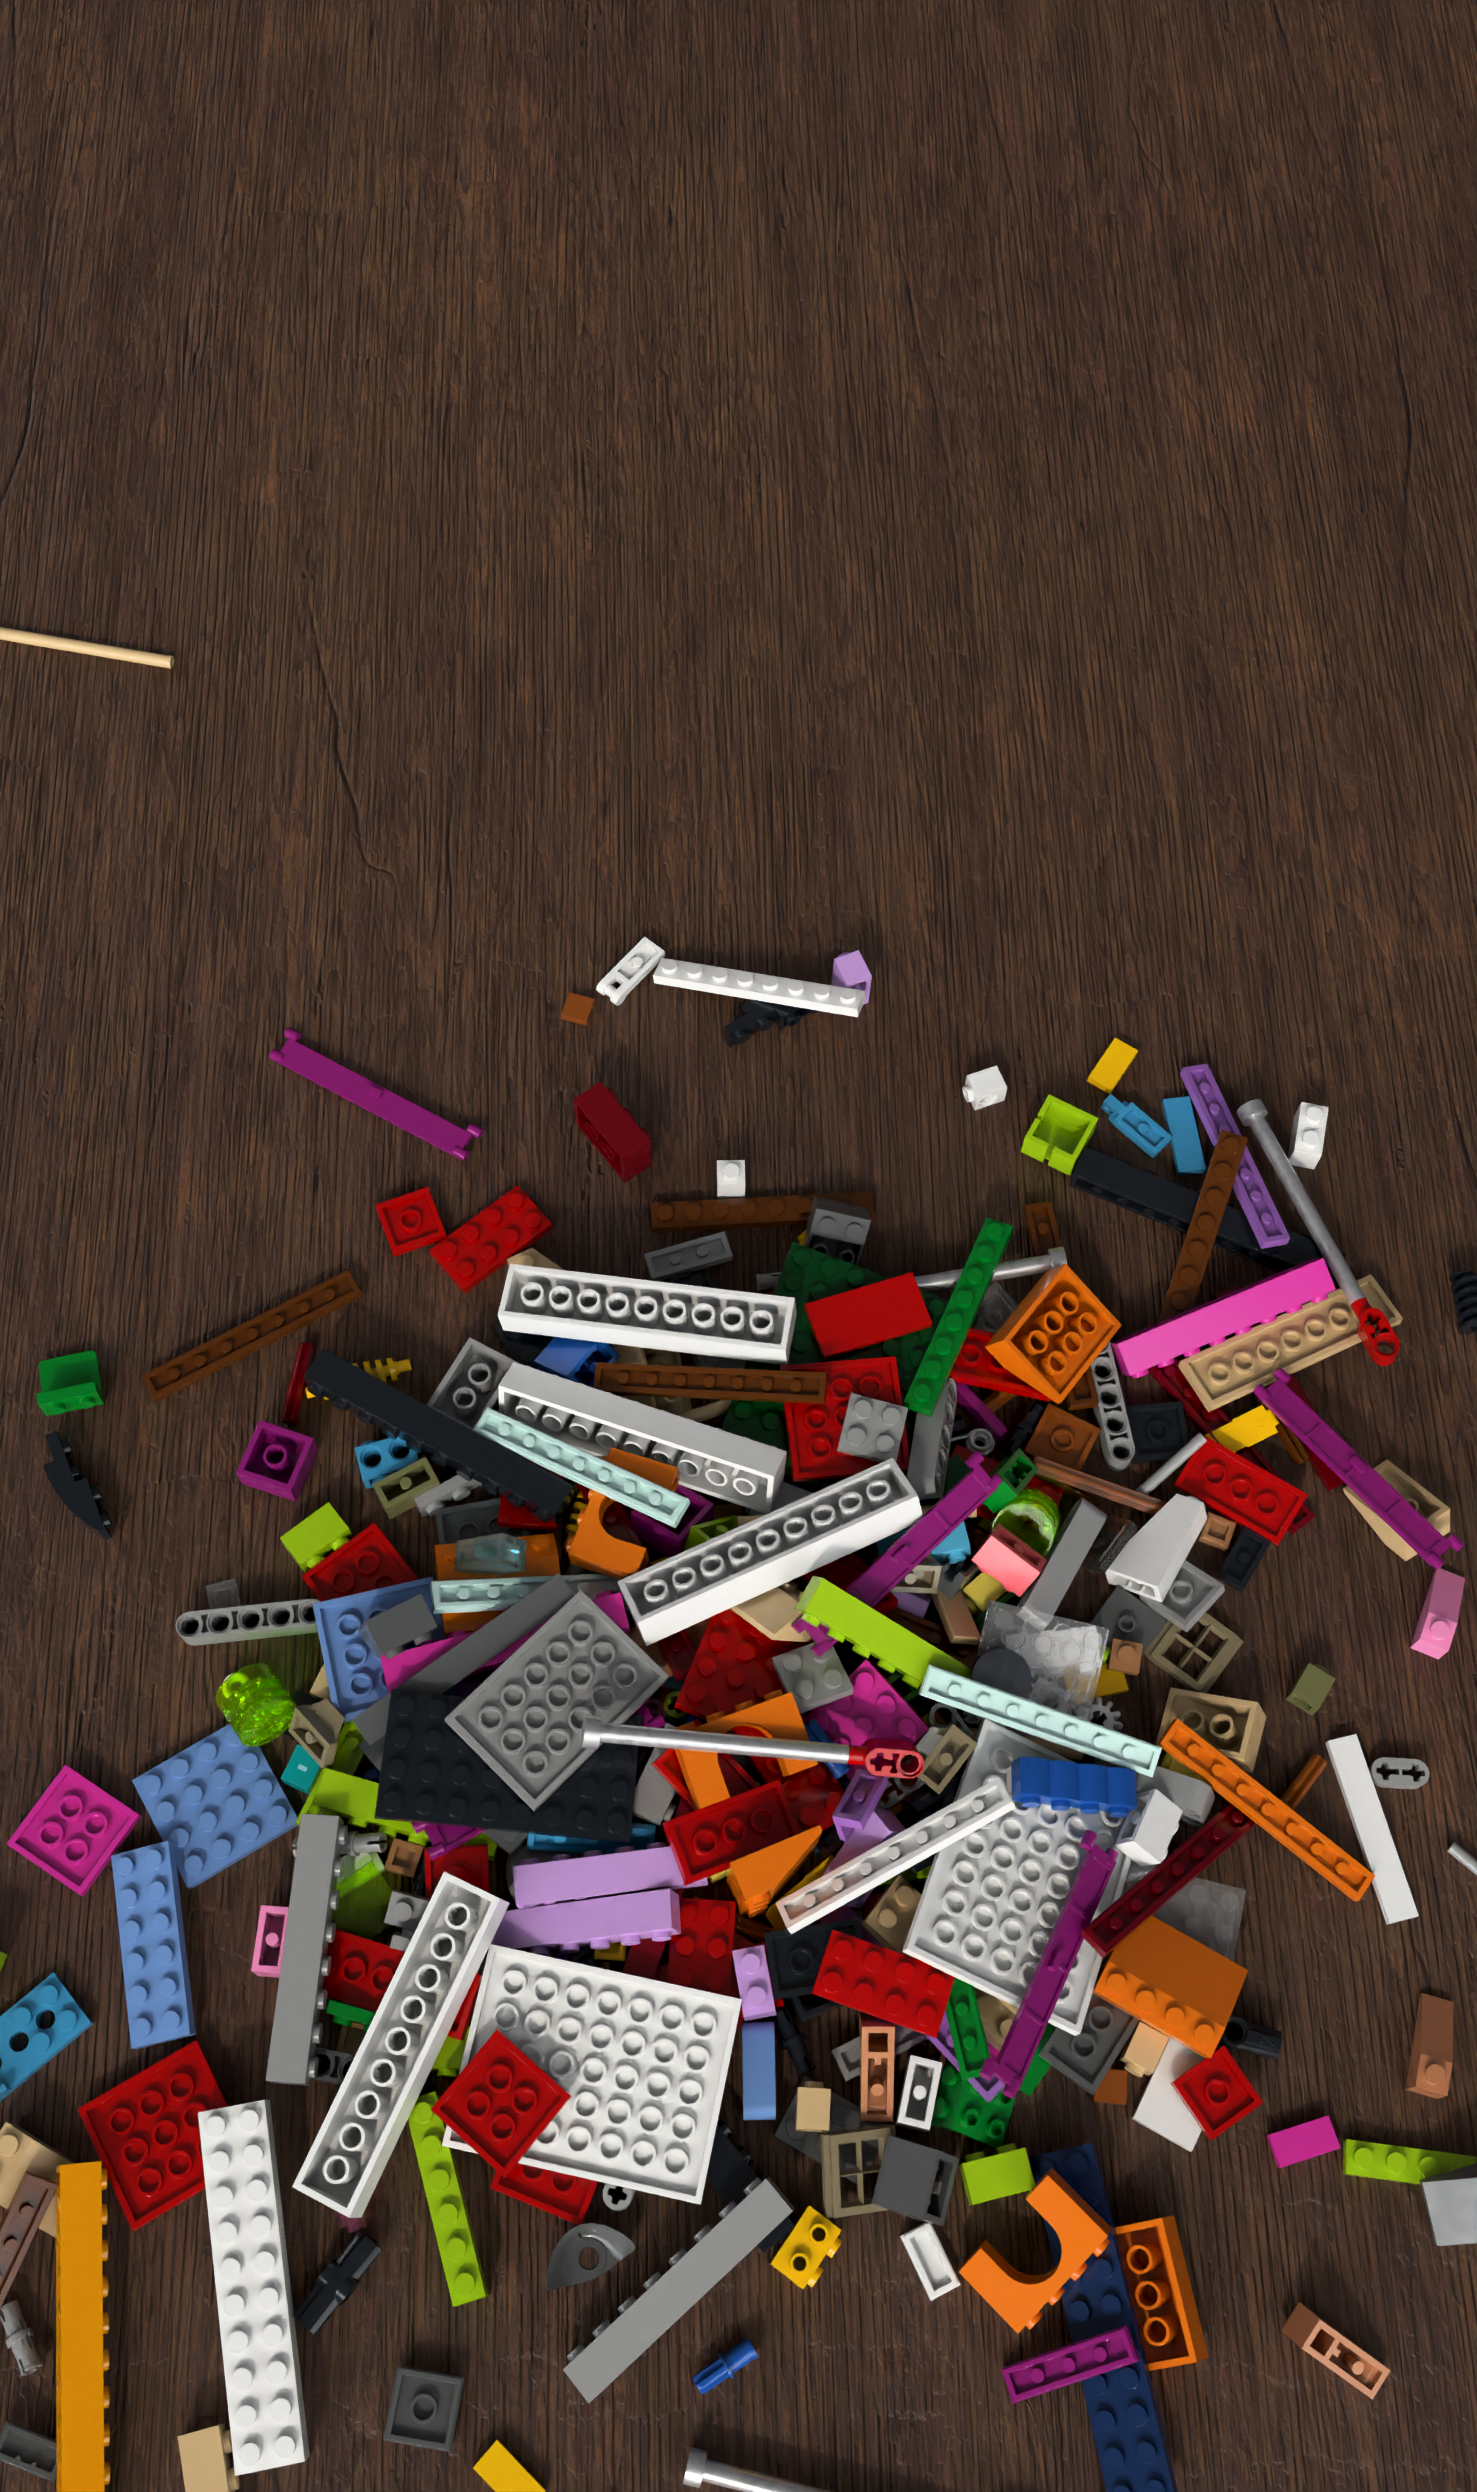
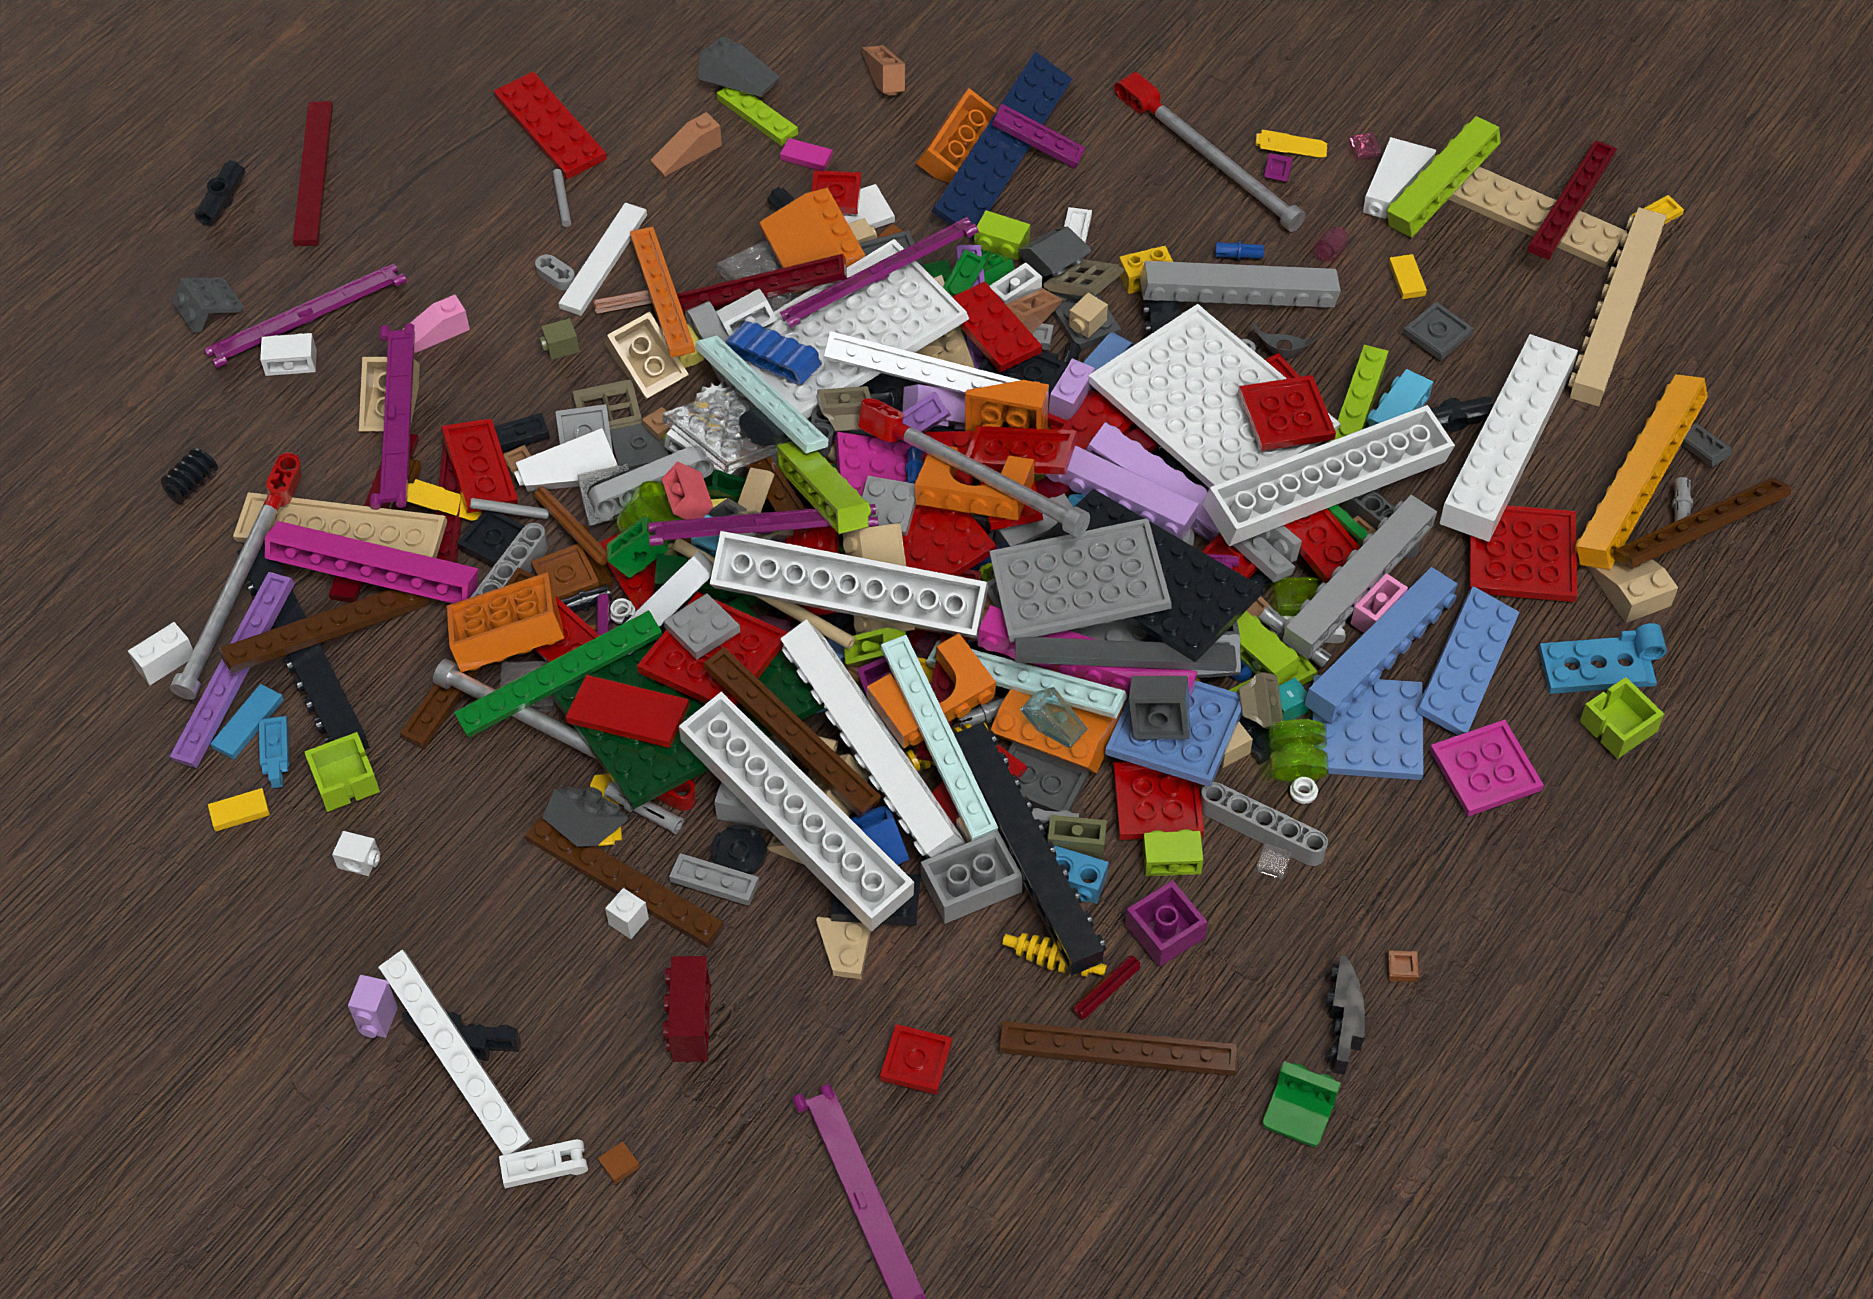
camera: 140 degrees left, 10 degrees down
(51, 1573) = (1403, 966): none -> dark orange tile
(244, 1892) = (1381, 645): none -> medium blue brick
(403, 2246) = (1406, 394): none -> medium azure brick
(490, 1239) = (859, 1003): red plate -> none
(625, 2459) = (1331, 244): none -> clear pink brick
(1019, 2295) = (1037, 176): orange arch -> none

